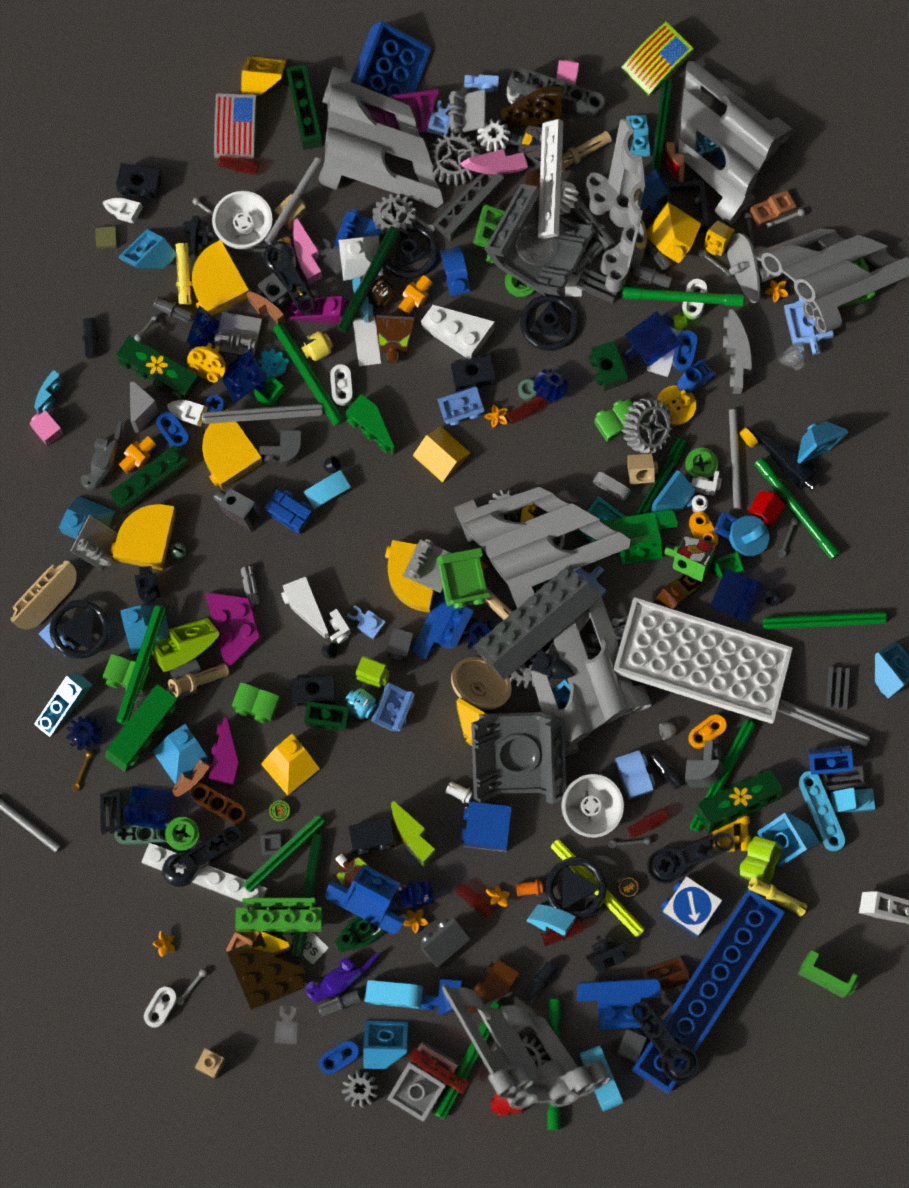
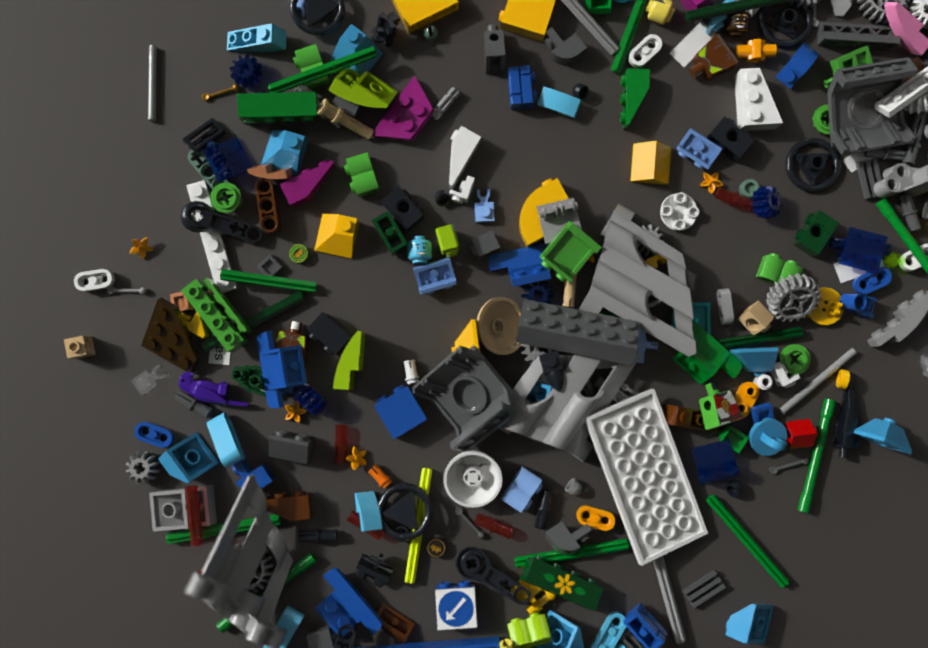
camera: 50 degrees right, 10 degrees up
(501, 462) = (679, 211): none -> white dish

